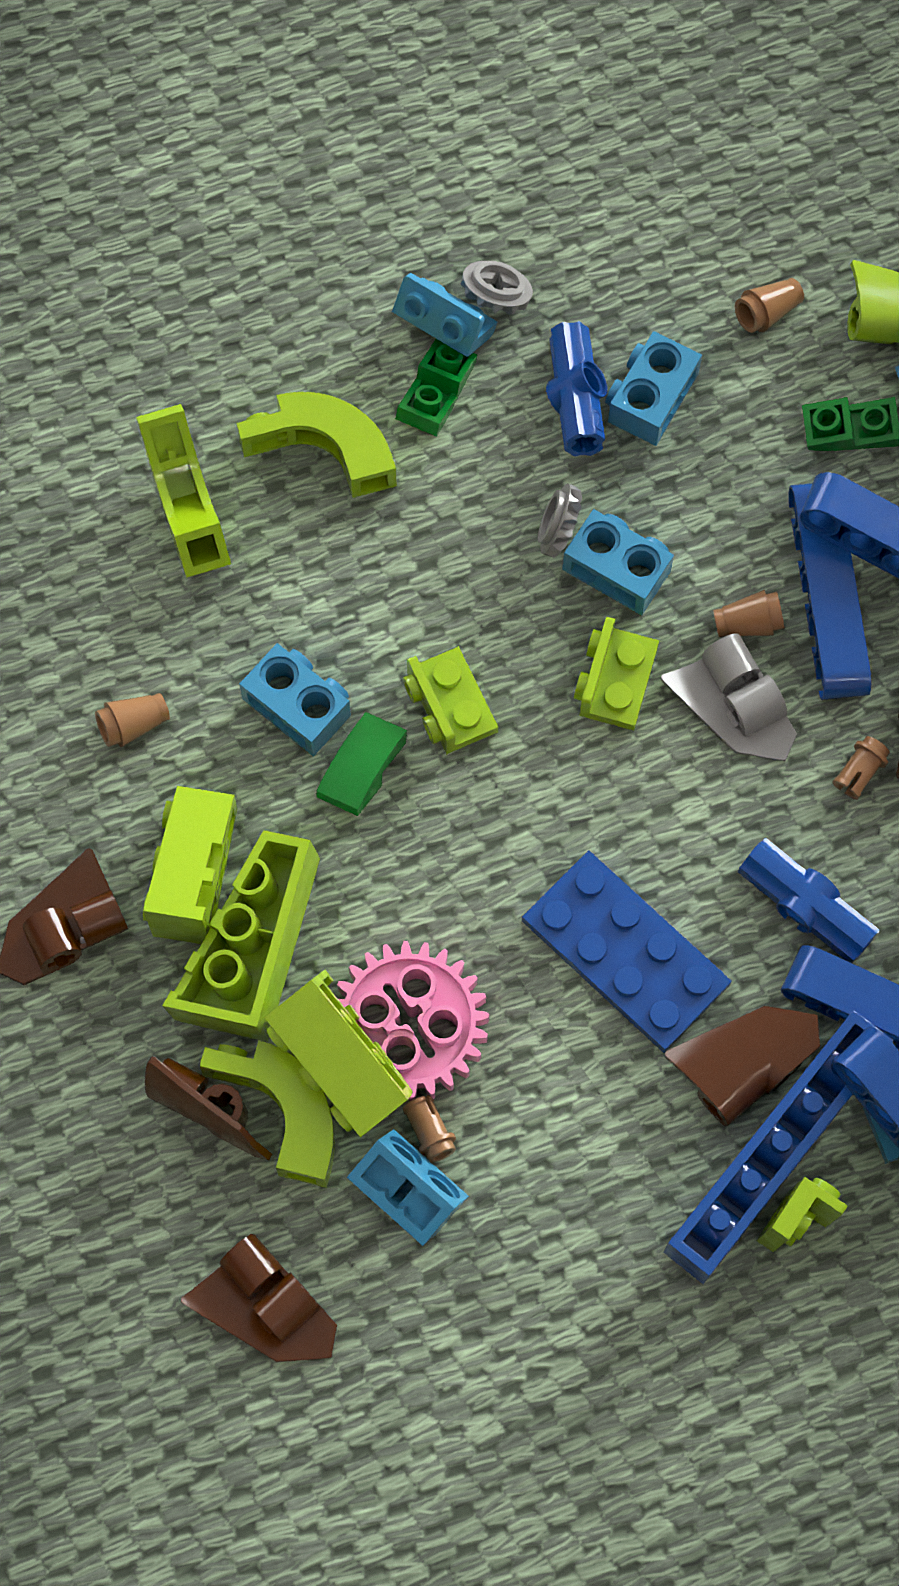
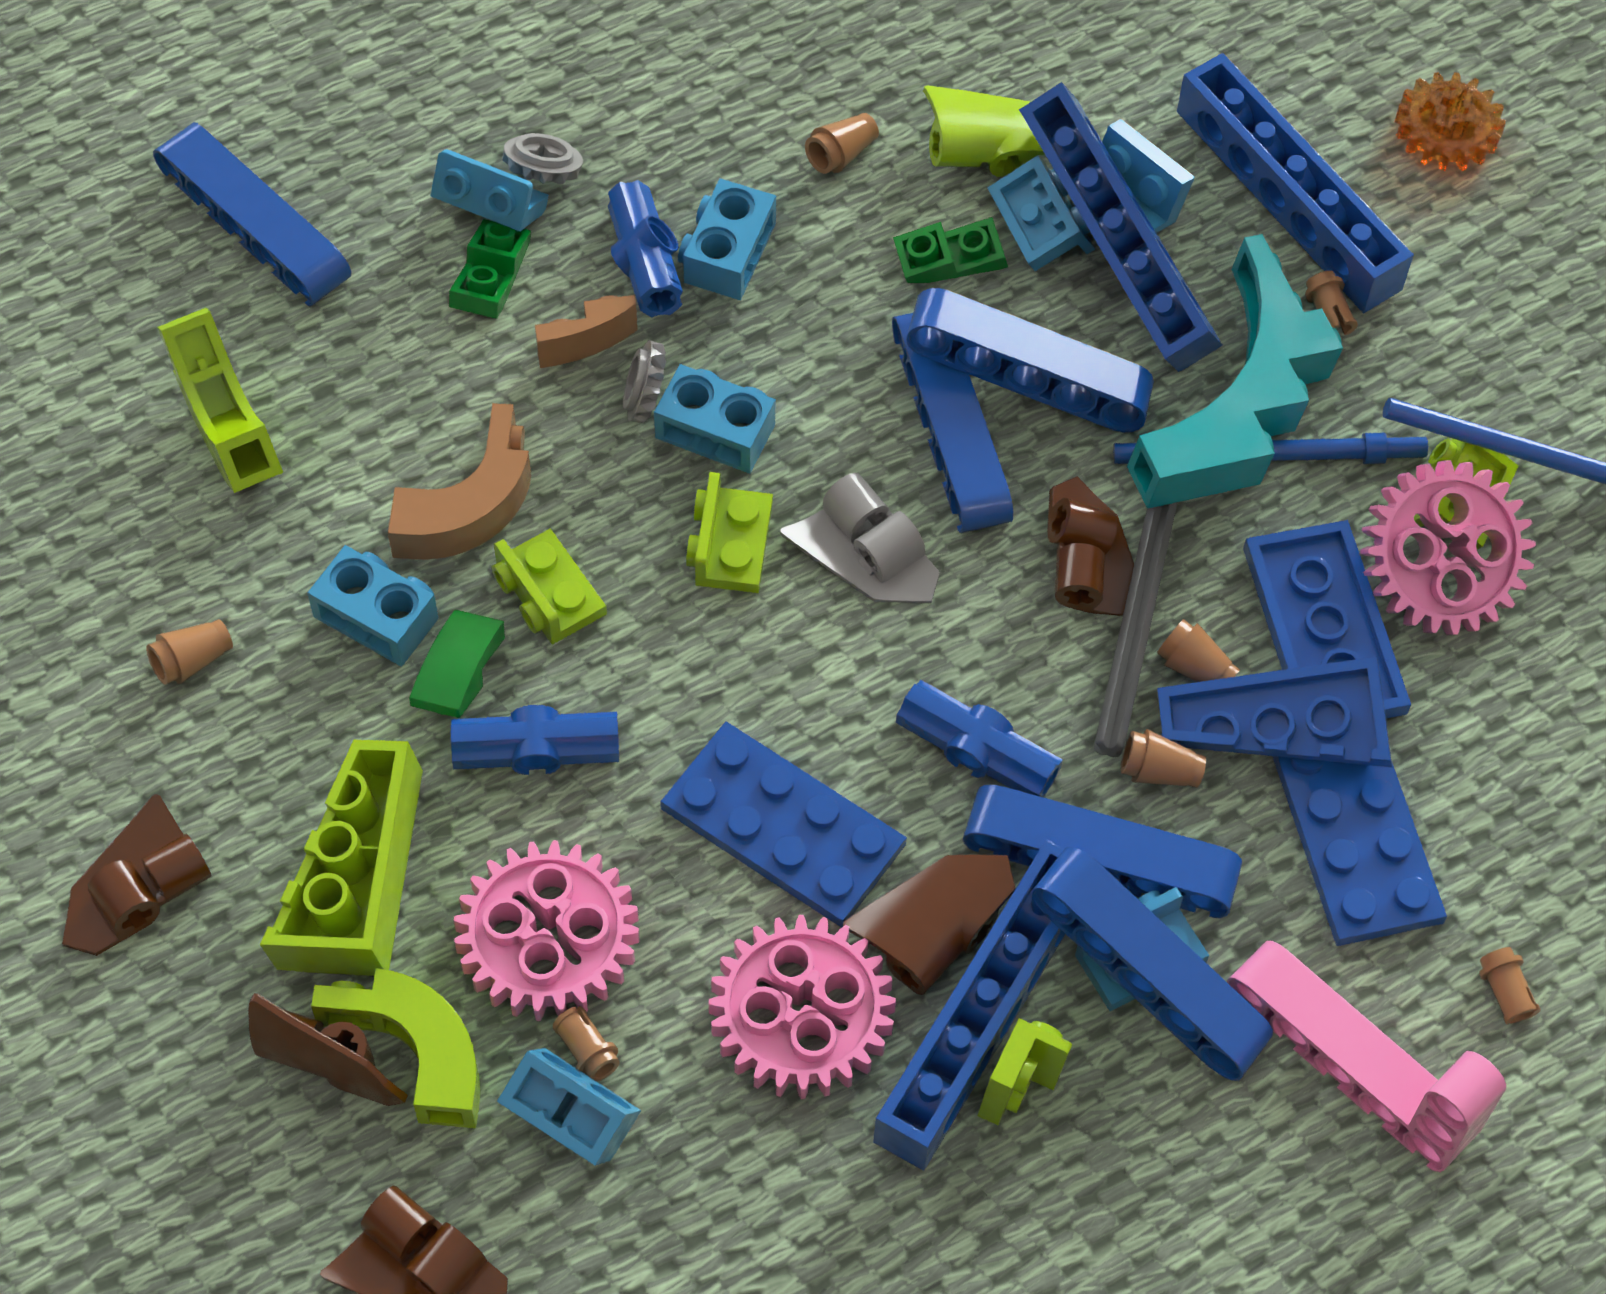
camera: 10 degrees left, 10 degrees down
(190, 864) = (273, 794): lime wedge -> none
(233, 305) = (254, 212): none -> blue beam
(329, 425) = (372, 319): lime arch -> none
(338, 1056) = (468, 966): lime wedge -> none
(387, 624) = (467, 514): none -> medium nougat arch
(420, 844) = (534, 740): none -> blue piece
(532, 456) = (605, 324): none -> medium nougat slope
(590, 1157) = (775, 1046): none -> bright pink gear
(750, 616) = (871, 455): medium nougat cone -> none
(864, 763) = (1021, 585): medium nougat pin -> none

